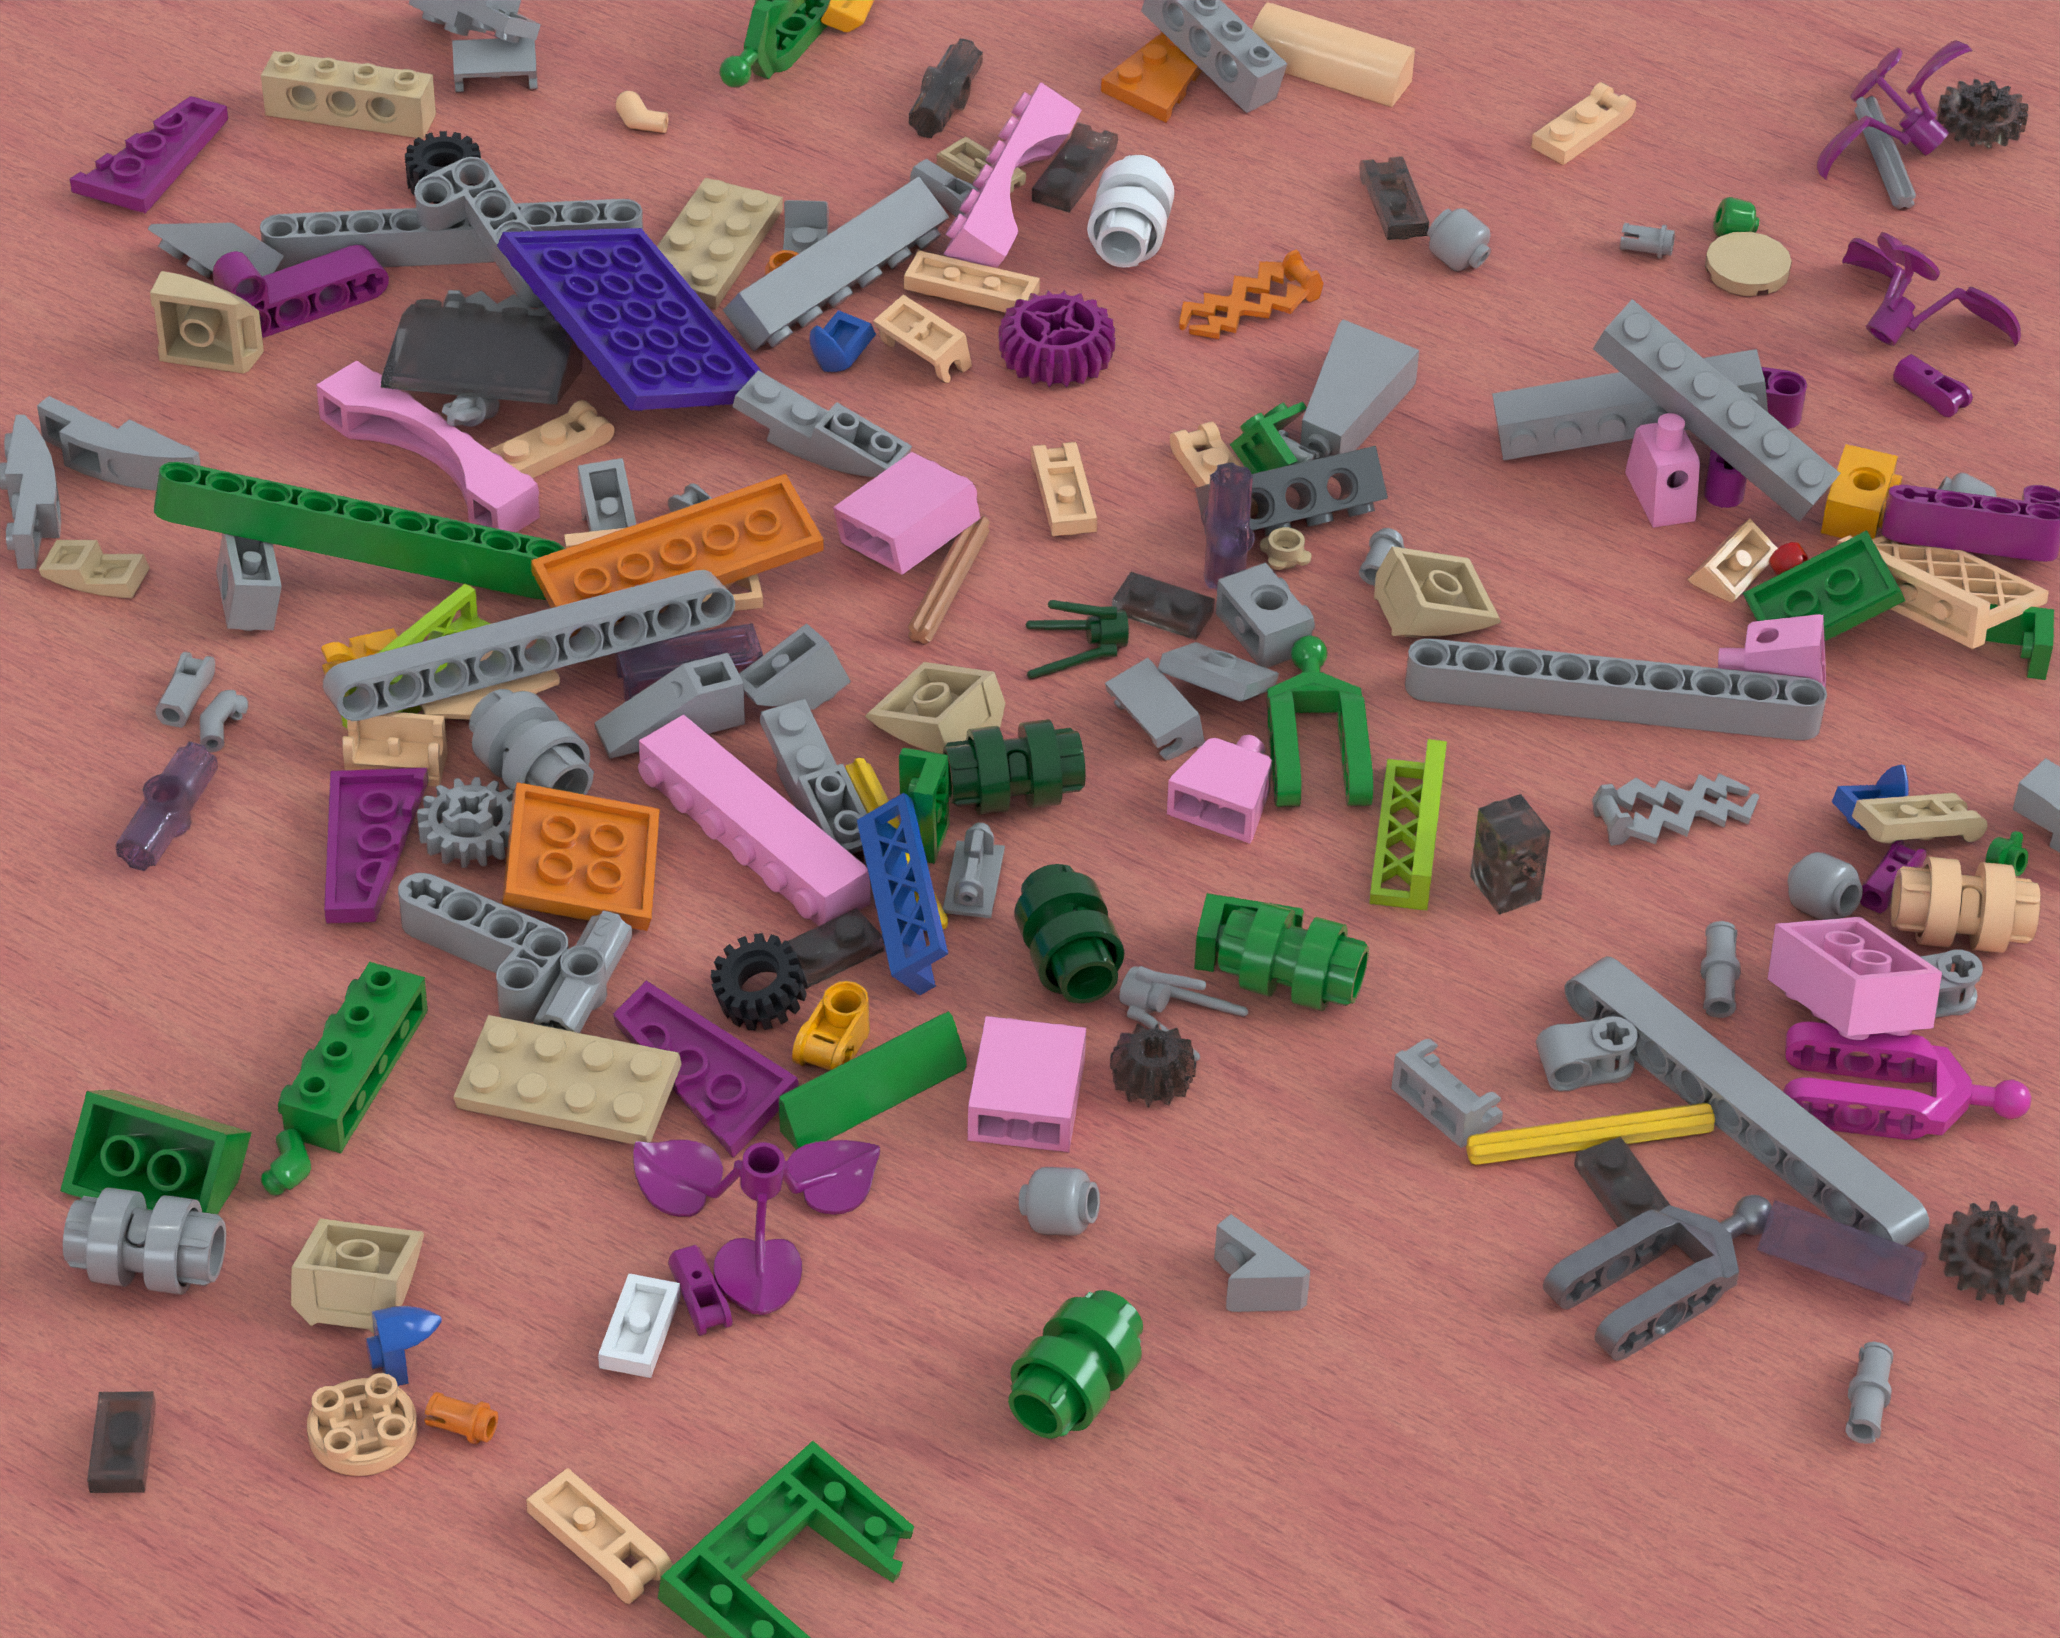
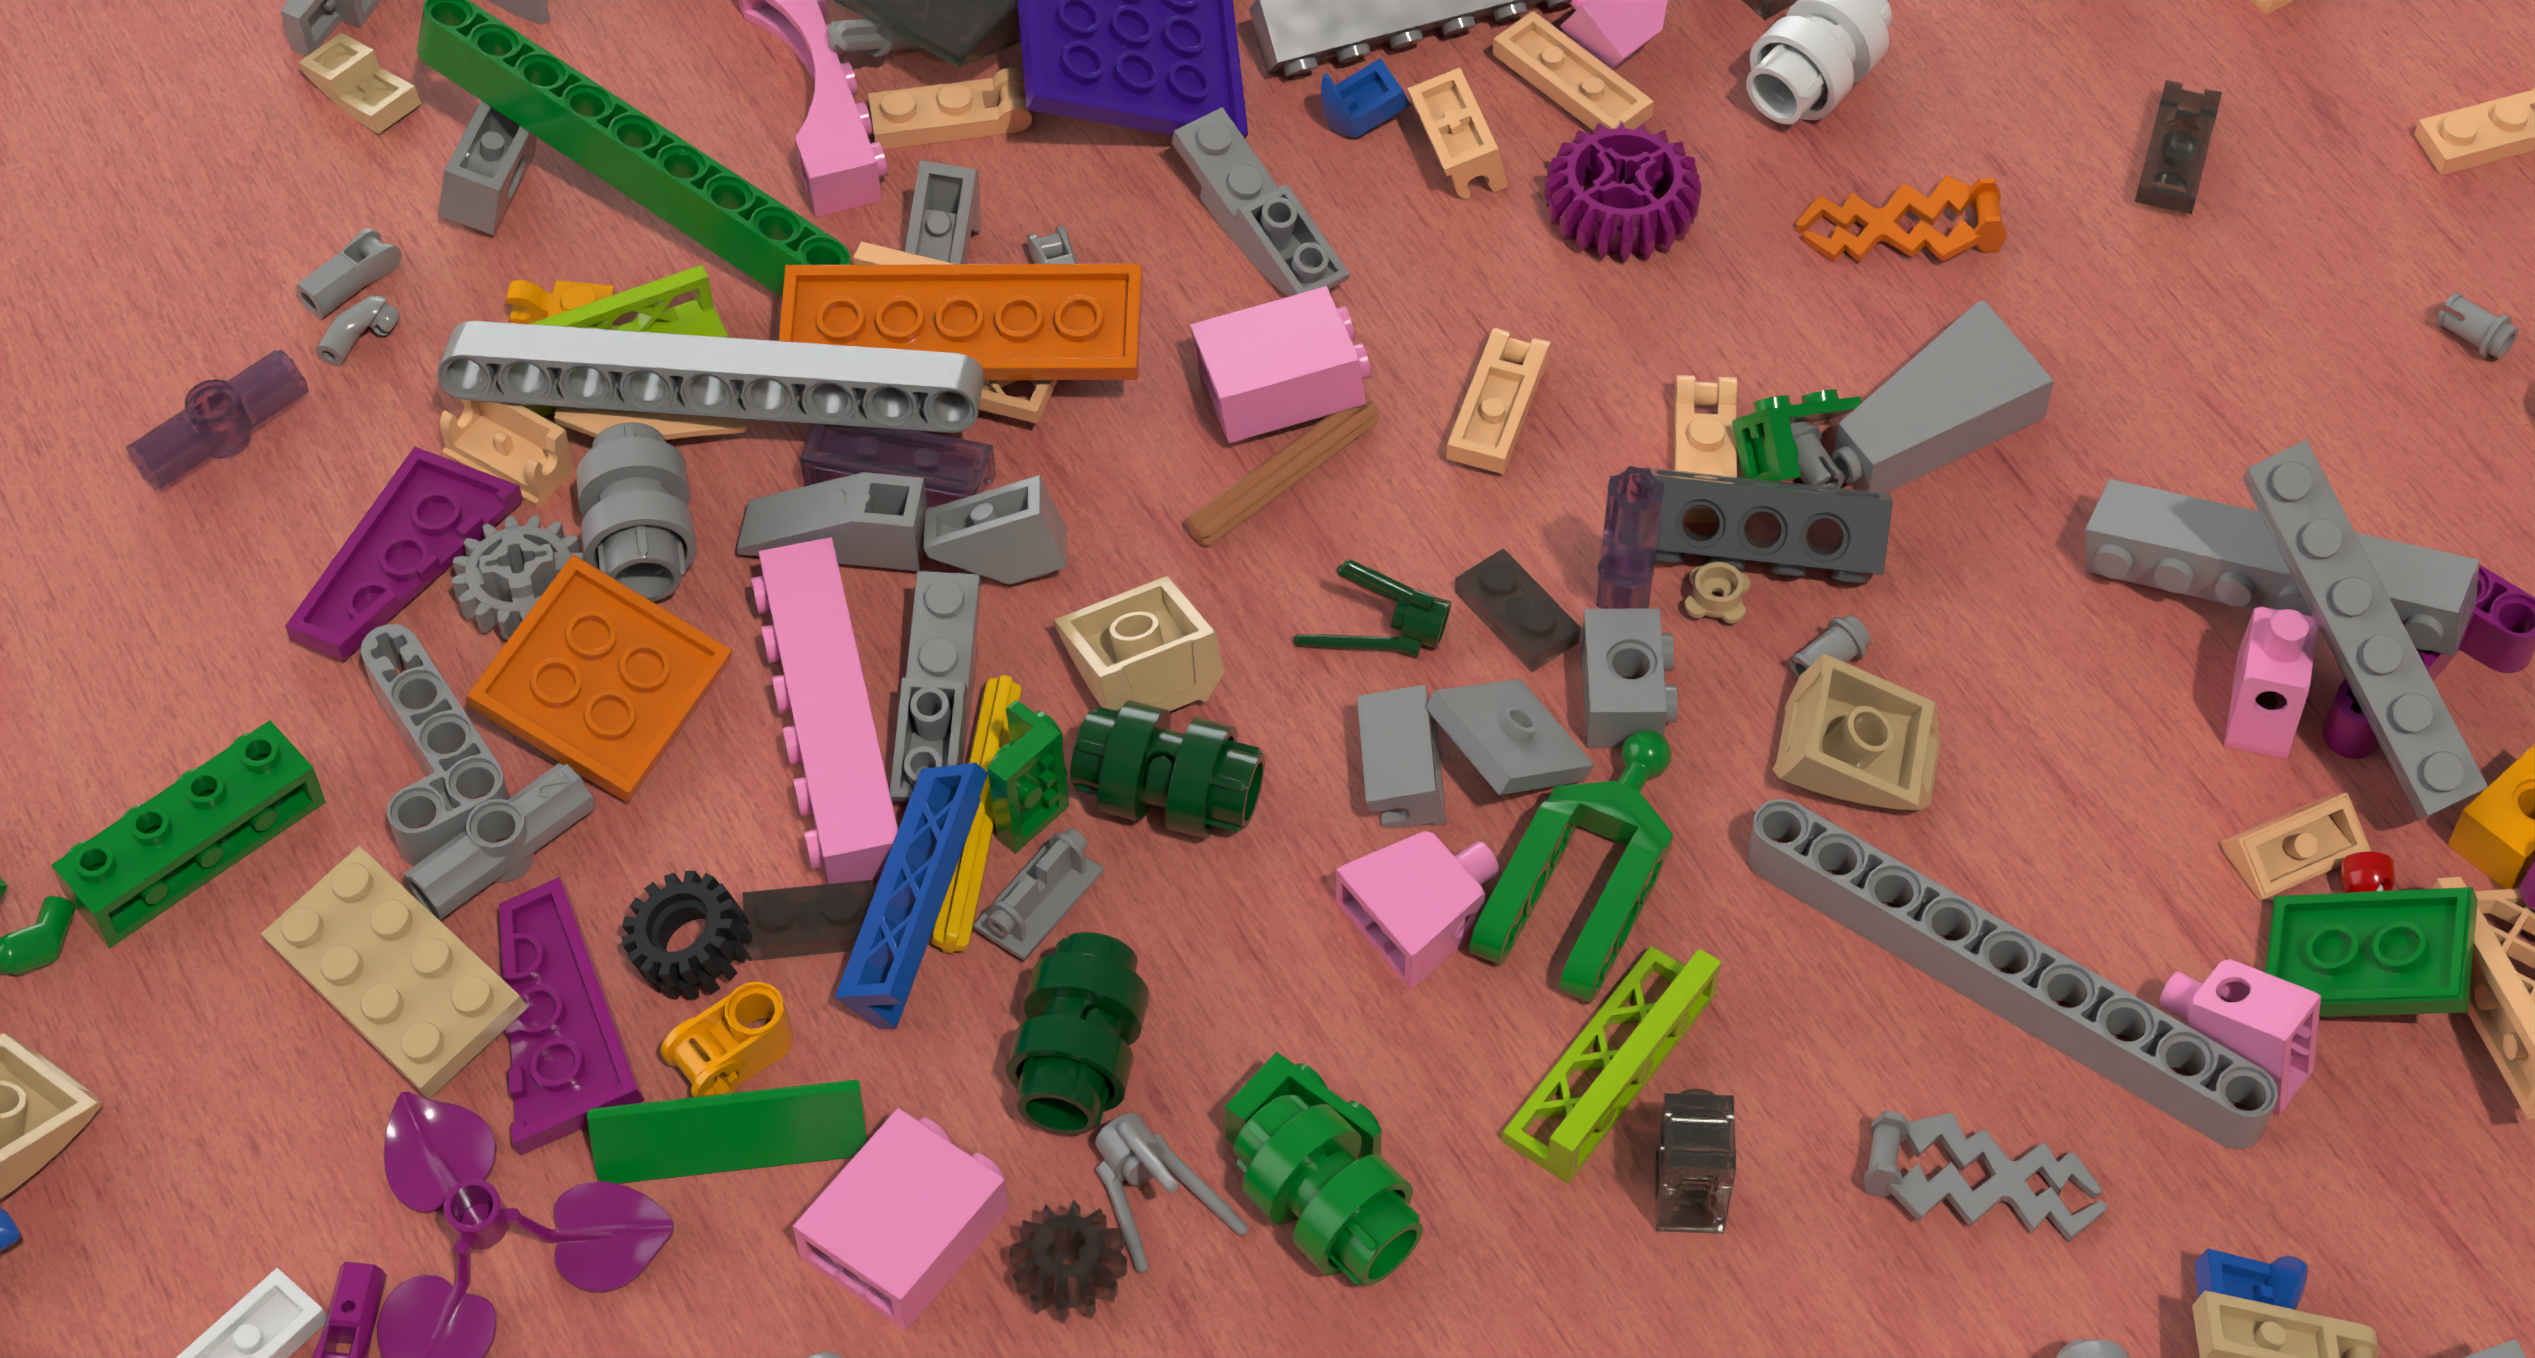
camera: 30 degrees right, 10 degrees up
(1459, 239) = (2221, 237): light grey head -> none

